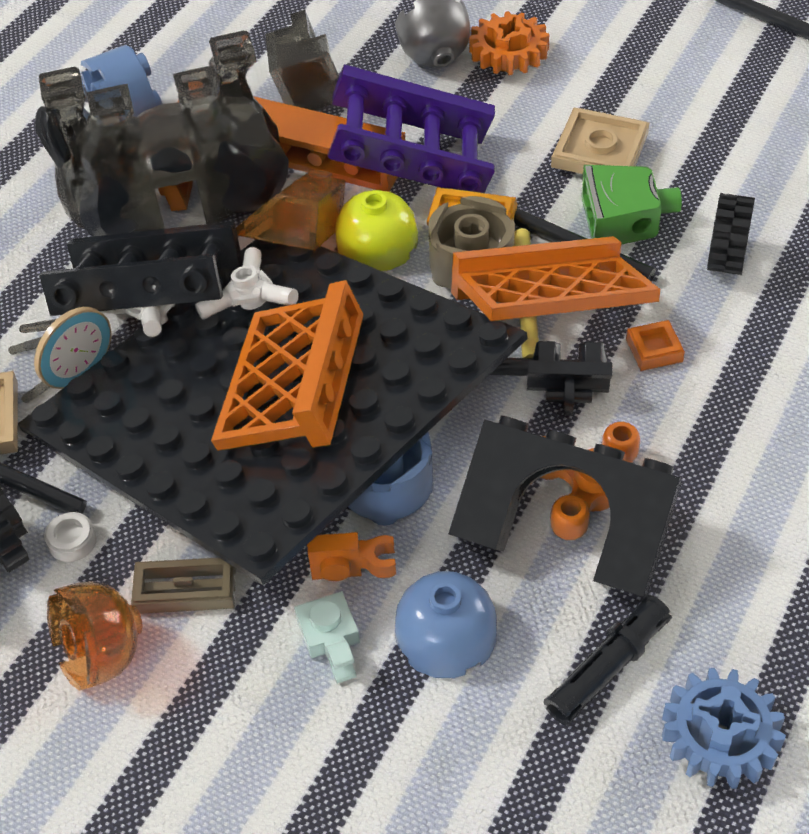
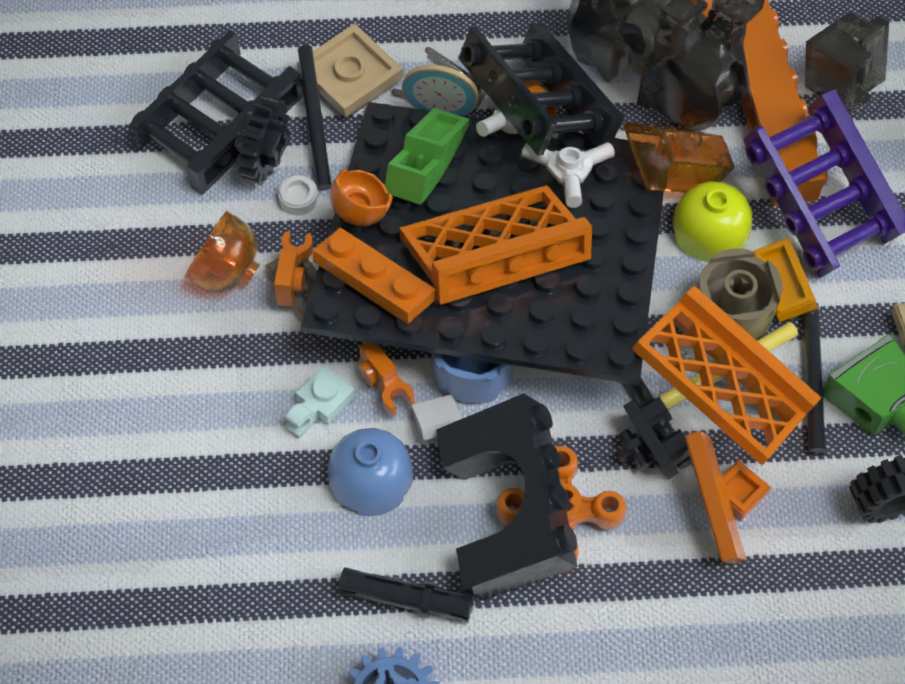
camera: 55 degrees right, 10 degrees up
(141, 388) = (425, 155): none -> bright green slope
(150, 456) = (359, 197): none -> orange hair
(169, 577) = (289, 276): none -> orange plate
(251, 484) = (374, 275): none -> orange plate
(425, 534) = (435, 414): none -> white tile
(665, 354) = (715, 498): none -> orange tile

